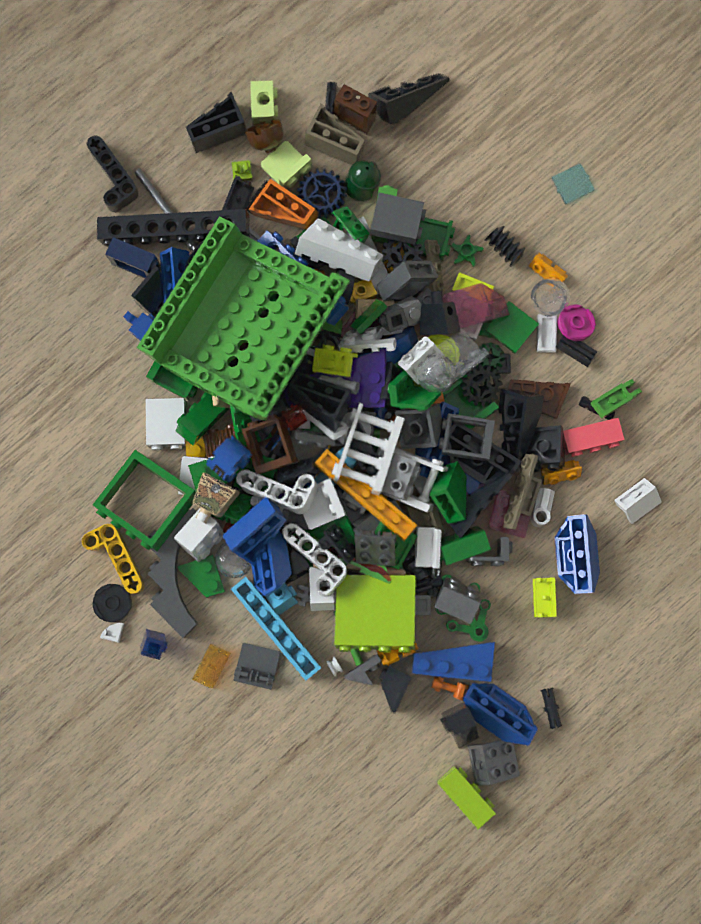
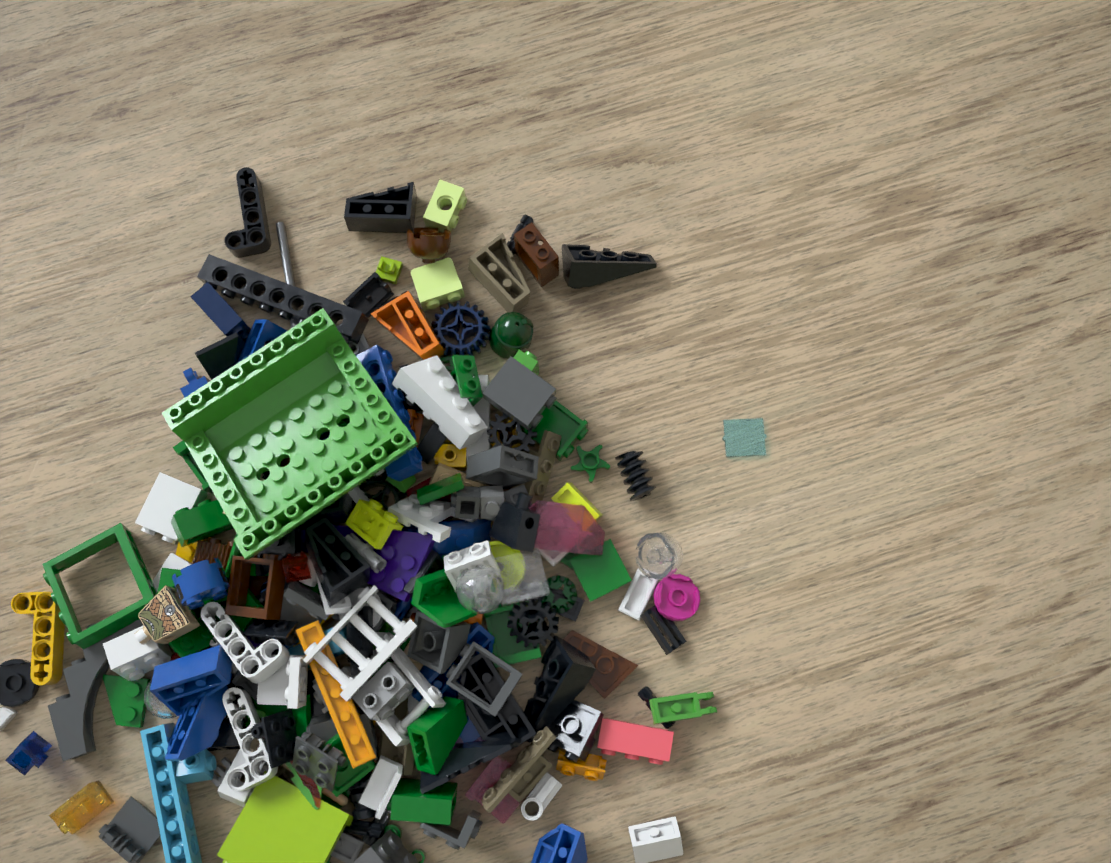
camera: 30 degrees right, 5 degrees down
(542, 266) = (666, 514): light orange hinge -> none

